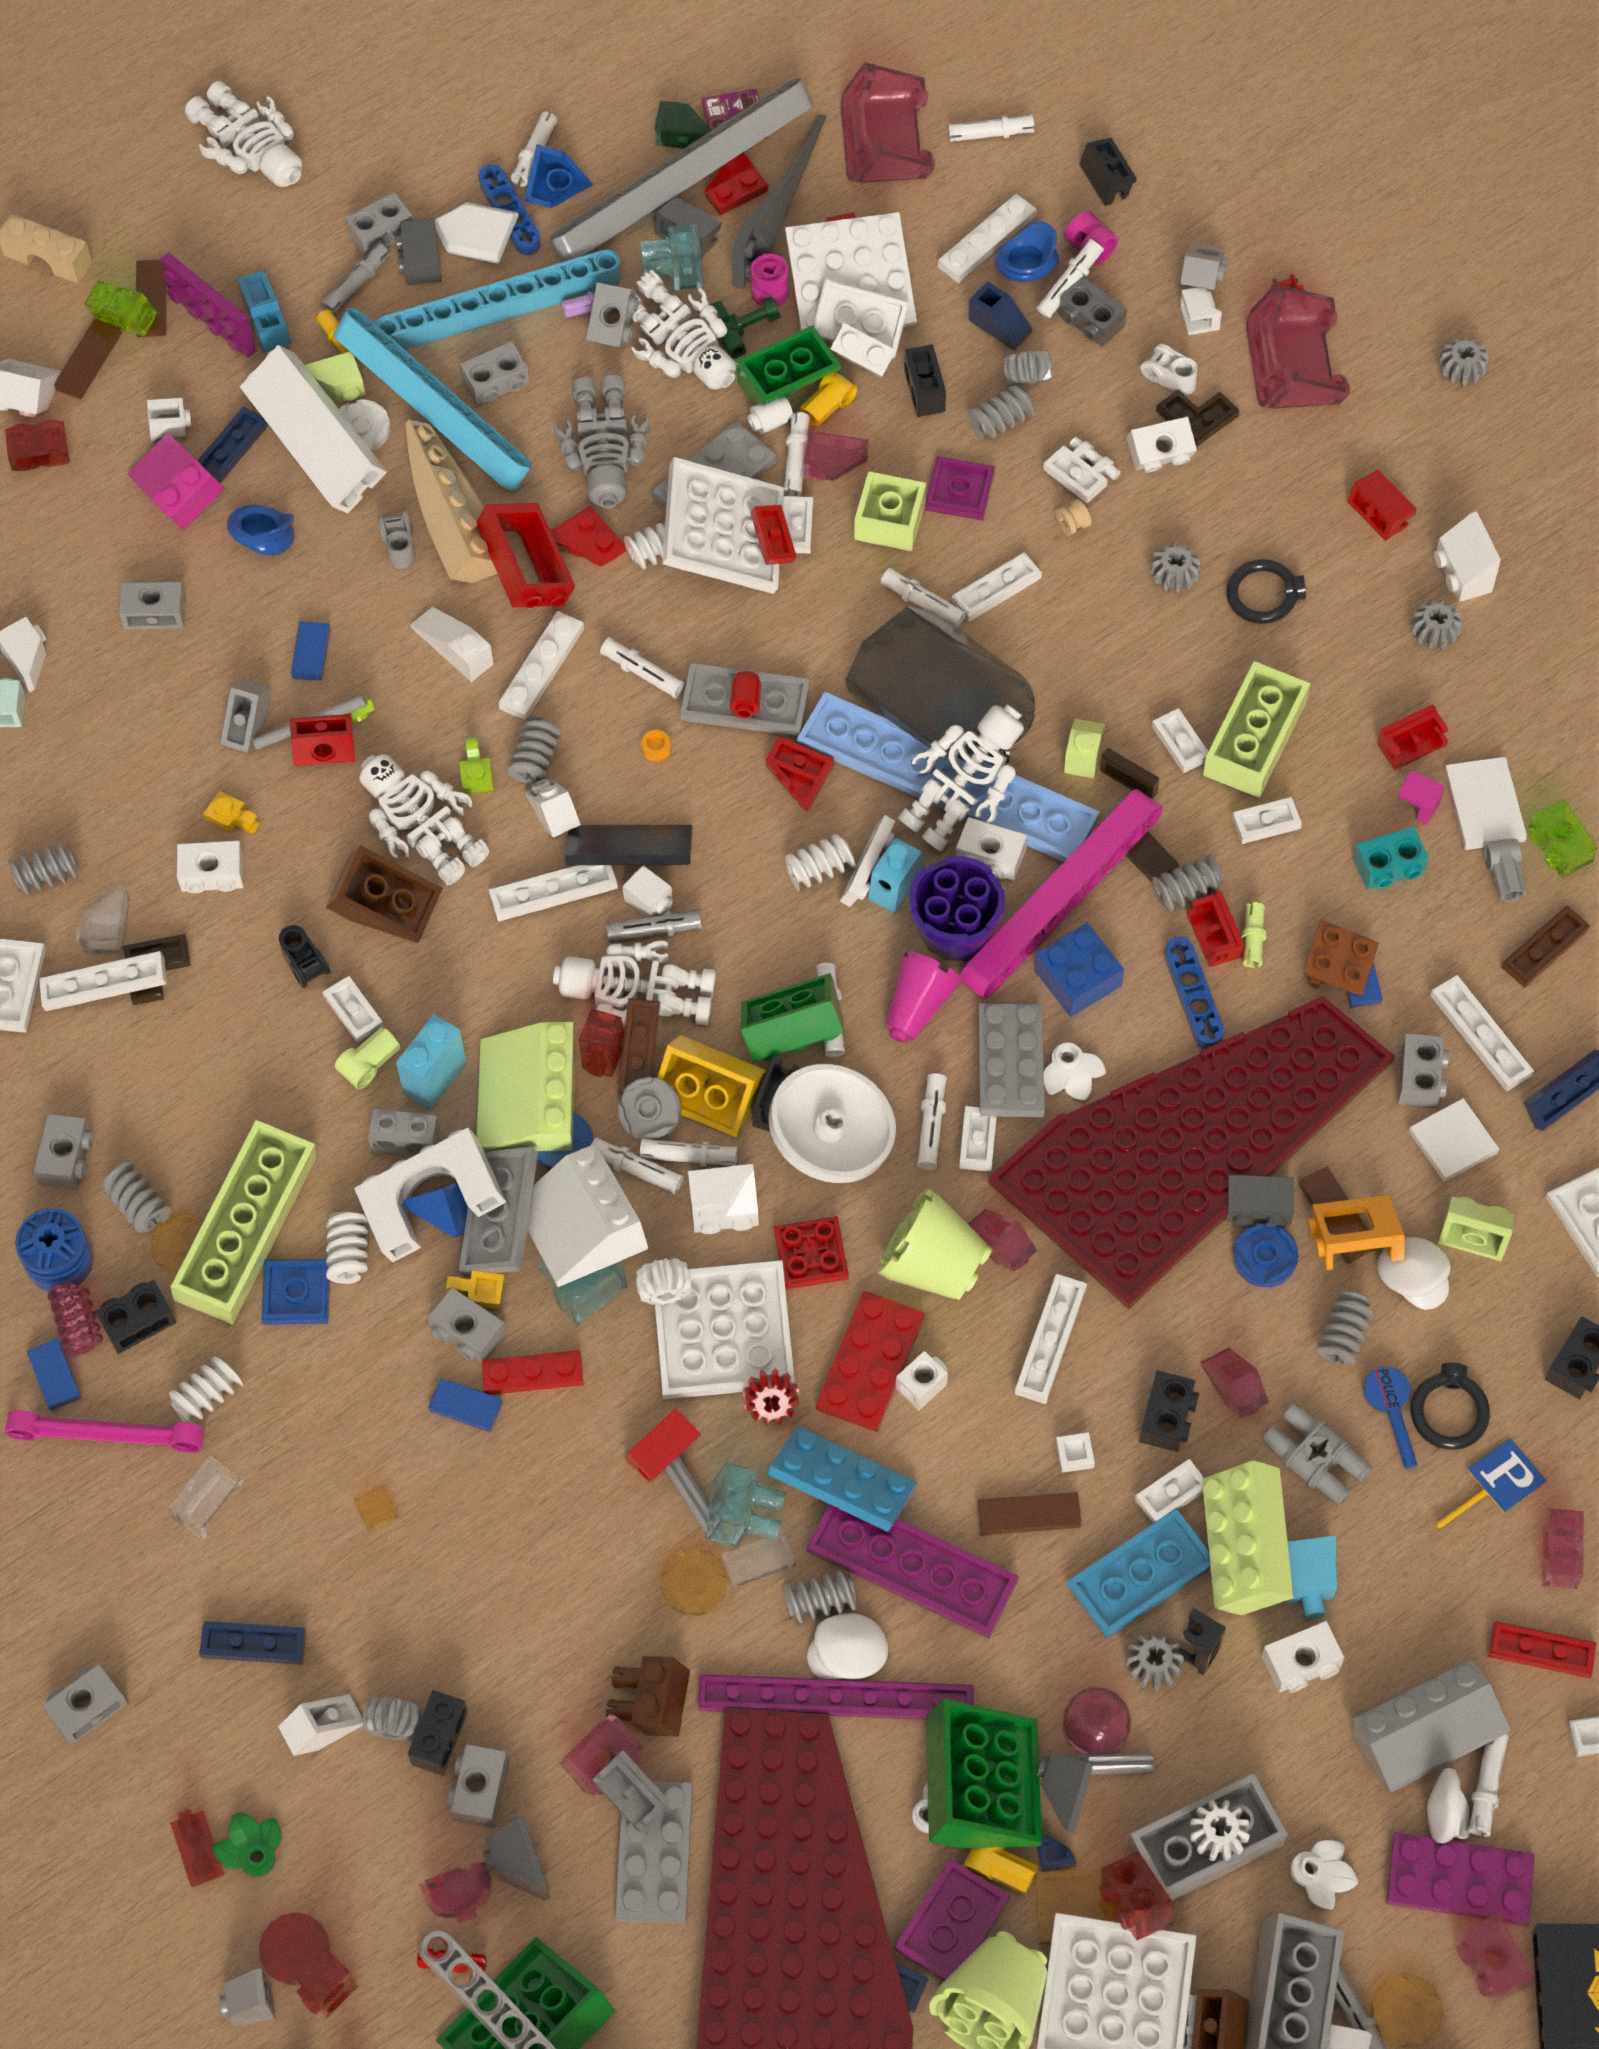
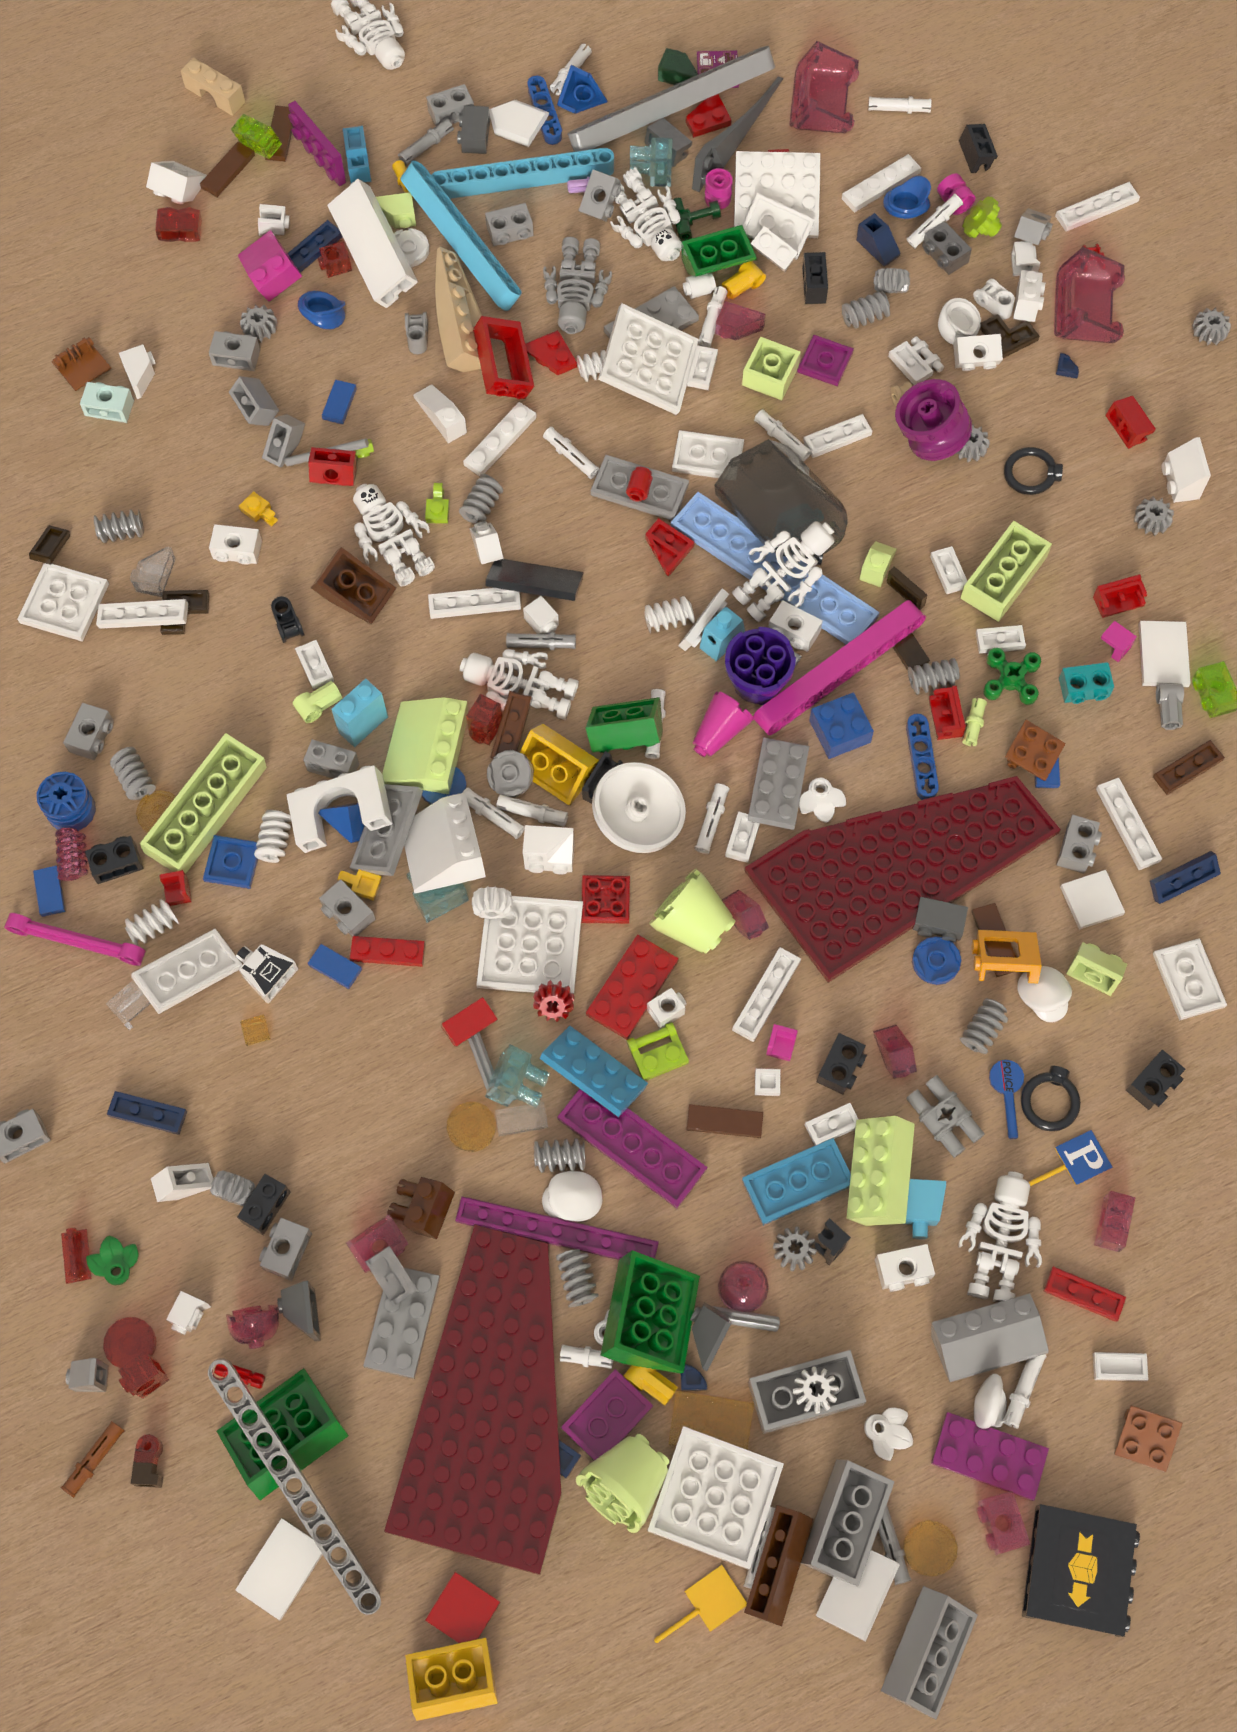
camera: 10 degrees right, 5 degrees up
(177, 561) = (259, 322): none -> light grey gear
(195, 669) = (253, 401): none -> light grey brick
(228, 1338) = (176, 888): none -> red panel
(264, 448) = (334, 259): none -> clear red brick
(267, 1445) = (186, 971): none -> white tile
(364, 1893) = (186, 1313): none -> white window
(374, 1426) = (266, 970): none -> torso
(656, 745) = (569, 510): light orange tile -> none
(773, 534) = (683, 371): red plate -> none
(823, 639) = (704, 453): none -> white tile
(874, 1750) = (576, 1277): none -> light grey piece
(907, 1851) = (584, 1356): none -> white pin
(927, 1448) = (659, 1059): none -> lime plate
(1083, 1397) = (781, 1042): none -> dark pink panel
(1122, 545) = (933, 419): none -> magenta piece
(1128, 406) = (958, 319): none -> white piece
(1133, 265) = (983, 218): none -> lime plant
(1141, 1893) = (748, 1425): clear red brick -> none
(1215, 359) = (1028, 295): none -> white brick
(1282, 224) = (1097, 206): none -> white tile
(1283, 445) = (1067, 367): none -> dark blue tile
(1312, 846) = (997, 659): none -> green gear
(1423, 1541) = (1011, 1194): none -> white piece

